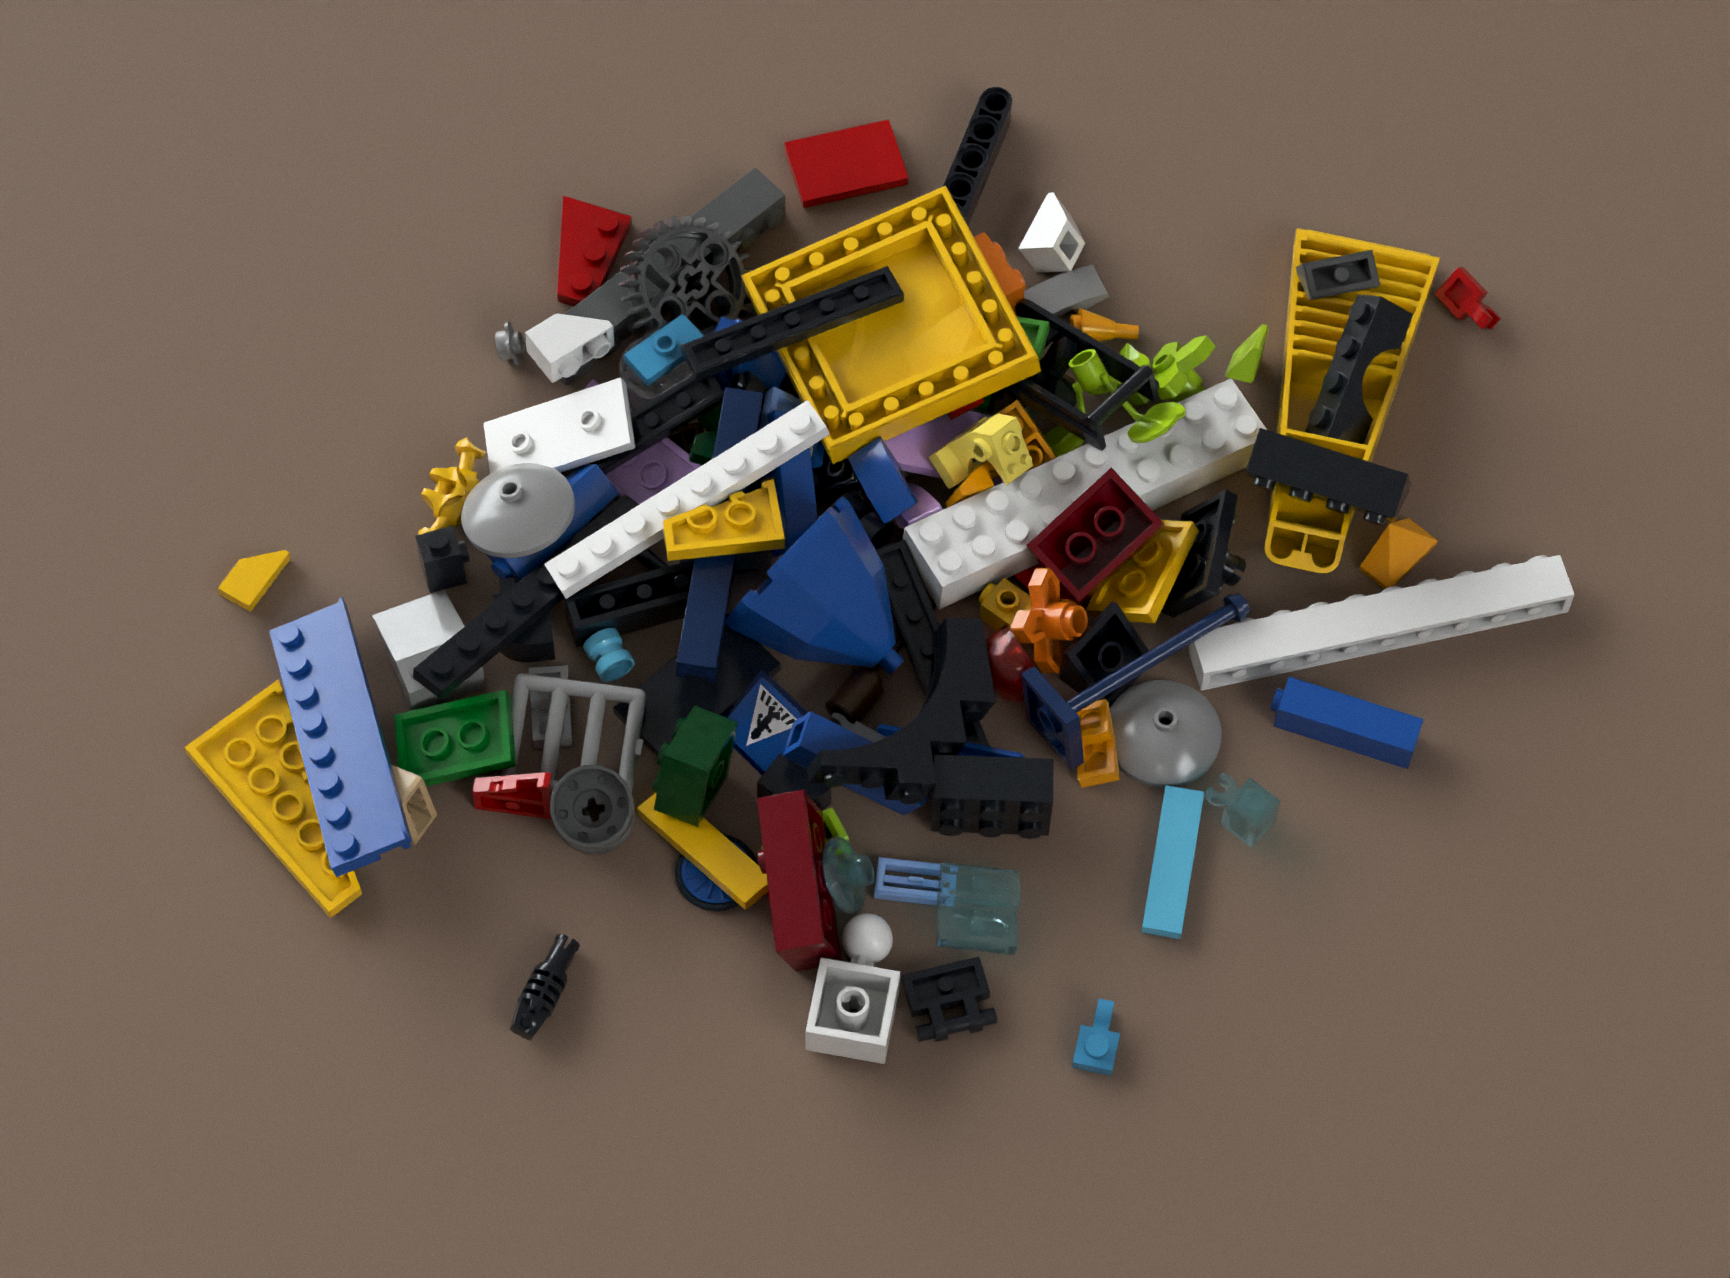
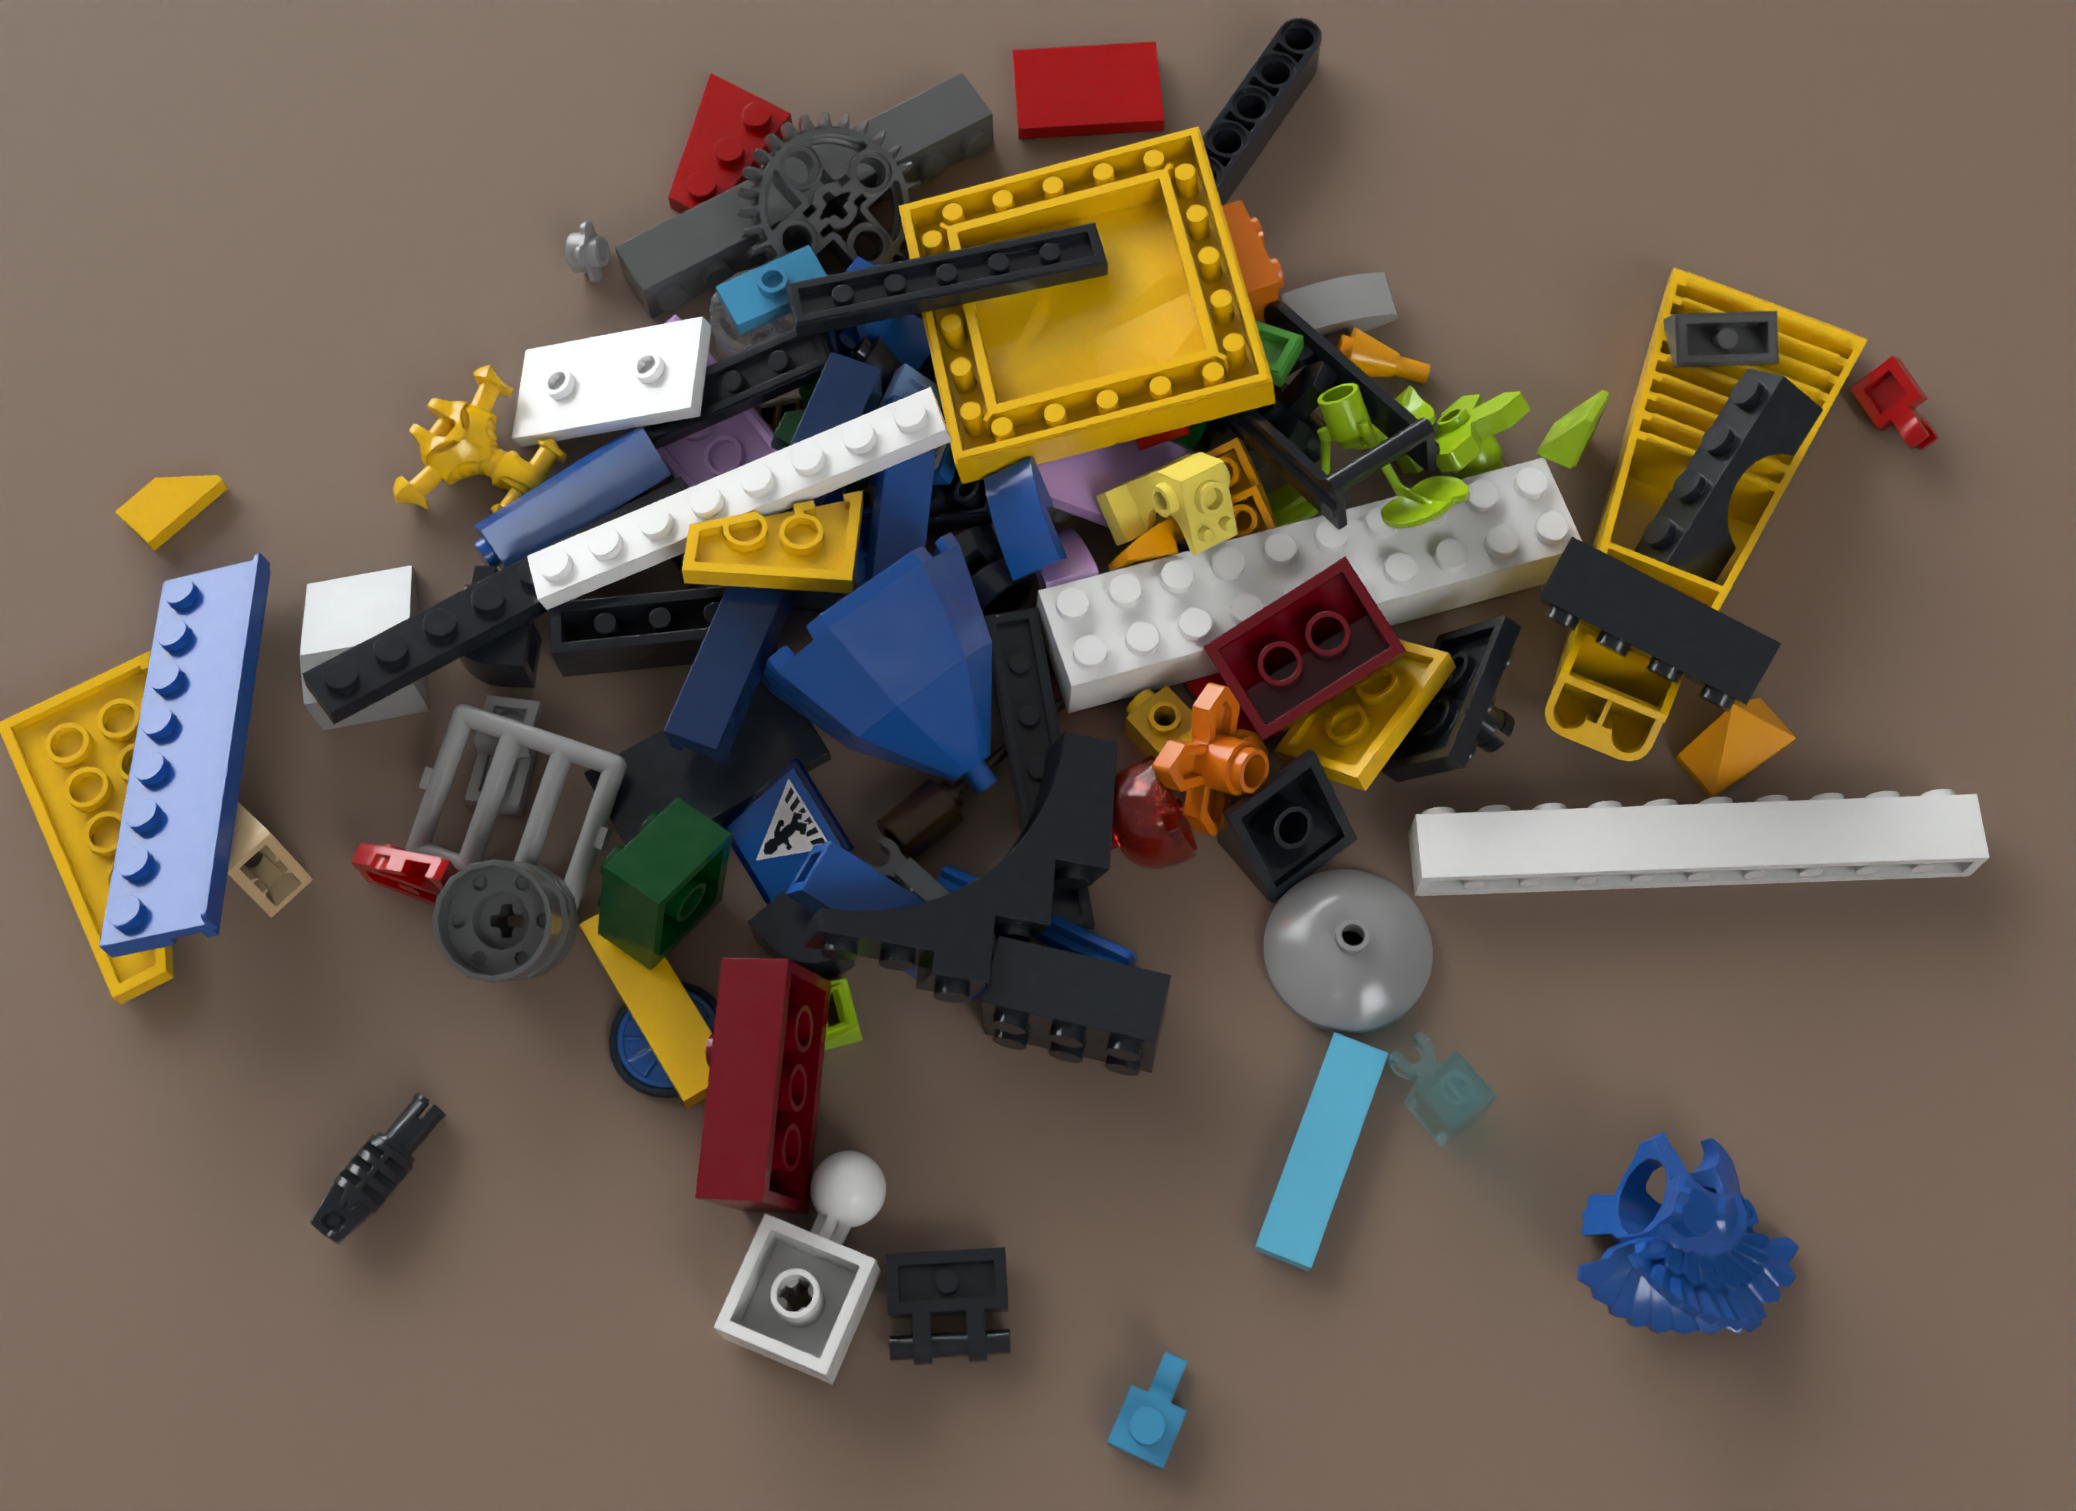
camera: 15 degrees right, 5 degrees up
(442, 558) = (412, 523): black brick -> none
(457, 738) = (355, 781): green plate -> none
(518, 510) = (521, 475): light grey dish -> none
(568, 342) = (650, 260): white slope -> none
(607, 651) = (600, 697): medium azure wheel -> none
(851, 874) = (846, 1087): clear light blue piece -> none
(904, 894) = (990, 1125): light blue tile -> none
(977, 908) = (1021, 1170): clear light blue slope -> none
(1052, 239) = (1337, 228): white slope -> none
(1058, 719) = (1194, 903): dark blue tile -> none
(1098, 746) = (1245, 949): light orange slope -> none
(1346, 722) = (1619, 987): blue brick -> none
(1422, 879) = (1684, 1259): none -> blue piece

